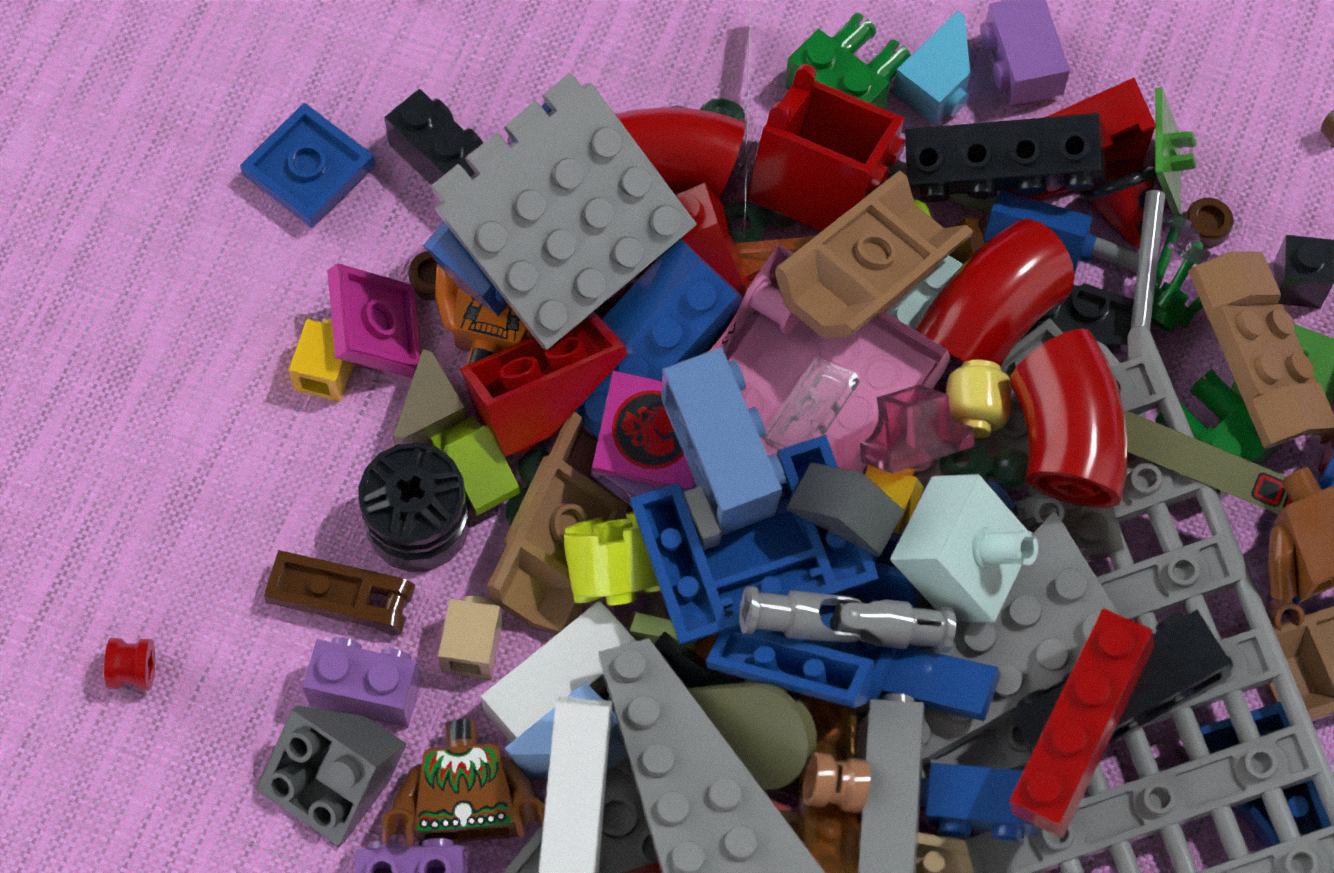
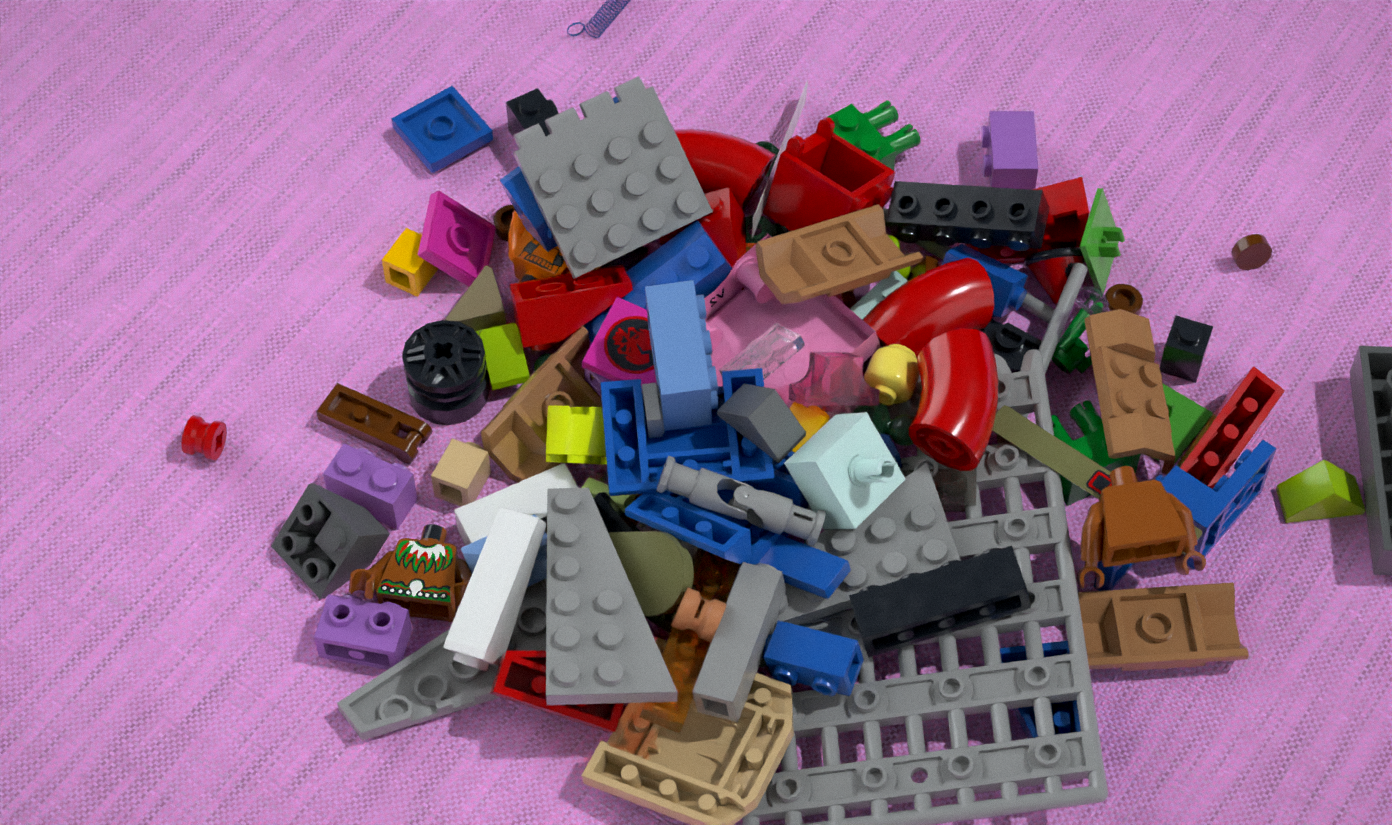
camera: 15 degrees right, 10 degrees down
(937, 73) = (938, 153): medium azure slope -> none
(1082, 722) = (896, 605): red brick -> none

